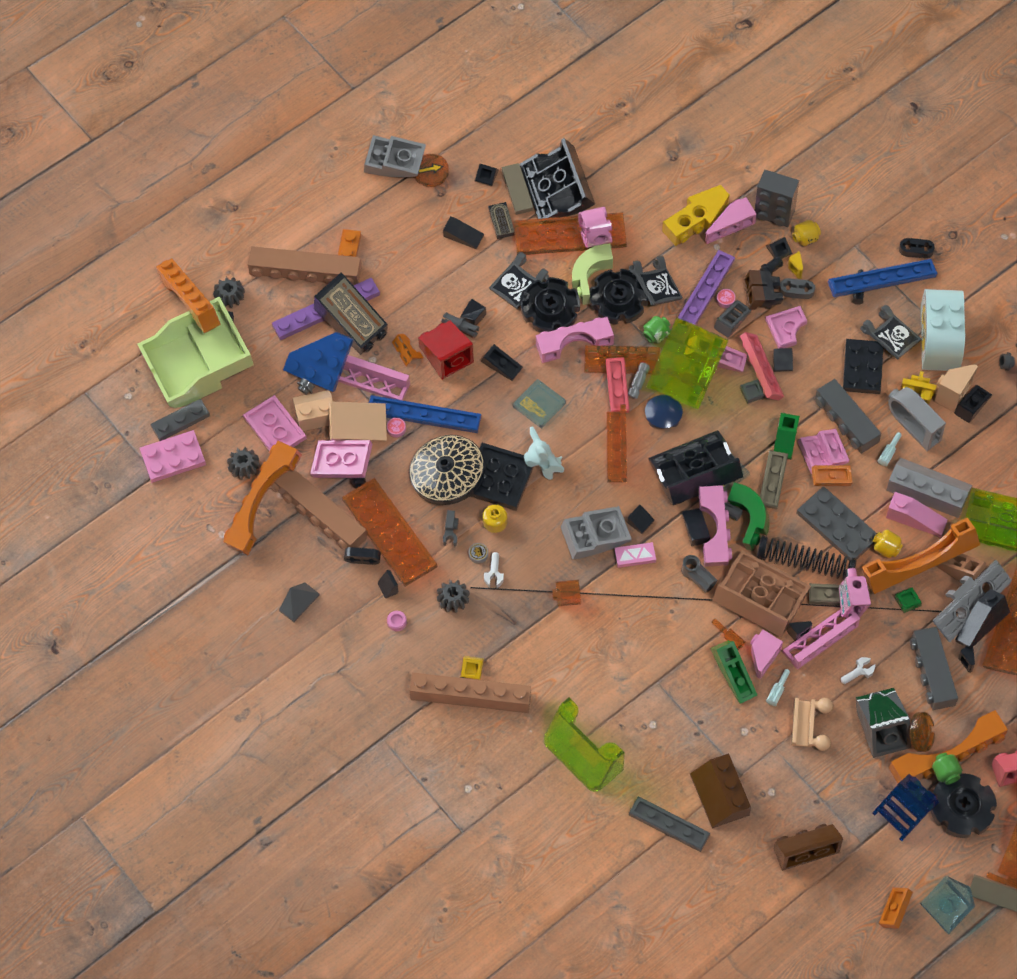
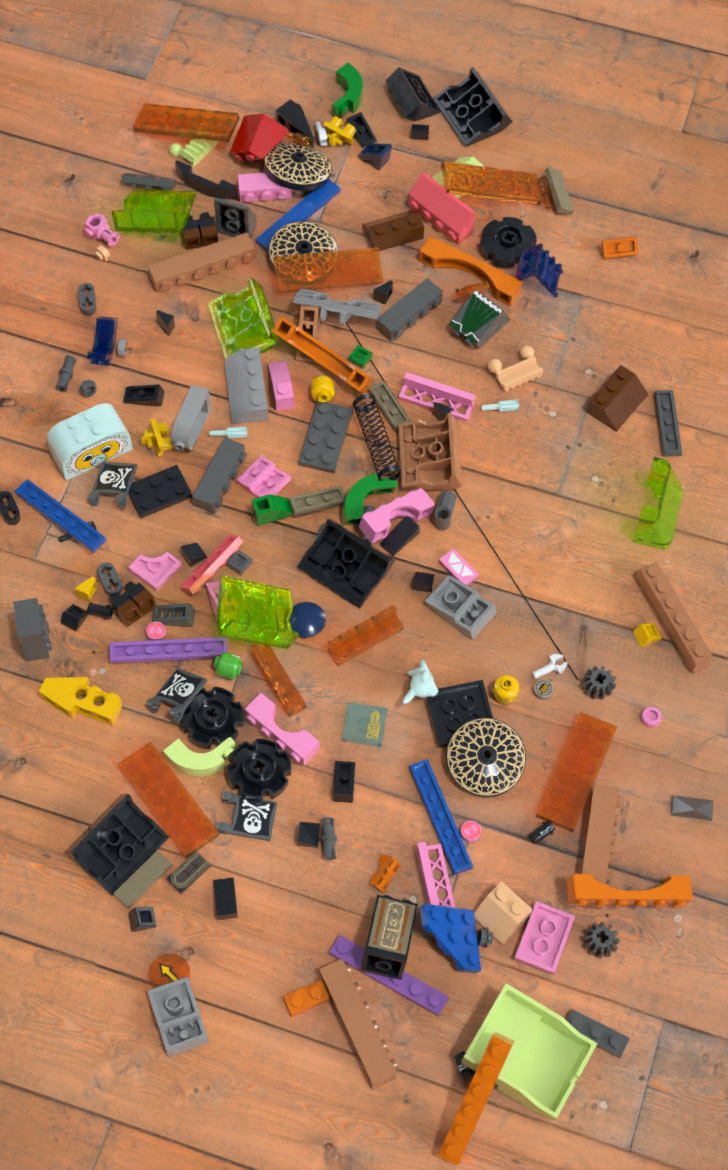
camera: 125 degrees left, 0 degrees up
(172, 456) = (636, 1014): bright pink plate -> none
(229, 291) = (424, 1076): dark grey gear -> none
(341, 459) = (539, 851): bright pink plate -> none
(357, 421) = (494, 859): light nougat tile -> none
(362, 556) = (615, 778): black beam -> none
(388, 584) = (625, 742): black slope -> none
(446, 349) = (365, 830): red slope -> none
(450, 526) = (537, 723): dark grey plate -> none
(567, 593) = (532, 595): clear orange brick -> none
(595, 227) = (158, 765): bright pink brick -> none
(617, 384) = (305, 668): coral tile -> none
(638, 380) = (290, 653): light grey axle -> none
(729, 634) = (481, 461): clear orange axle -> none
(734, 218) = (62, 664): bright pink slope -> none
(734, 670) = (510, 442): green slope -> none
(764, 651) = (481, 427): bright pink slope -> none
(806, 233) = (47, 597): yellow head -> none
(808, 846) = (619, 317): reddish brown slope -> none
(832, 475) = (285, 458): orange plate -> none
(853, 594) = (392, 381): bright pink torso -> none
(859, 670) = (445, 360): white bar -> none
(947, 768) = (493, 254): bright green head -> none
(949, 903) = (592, 215): clear light blue slope -> none
(954, 386) = (141, 404): light nougat slope -> none
(983, 618) = (351, 289): black slope -> none

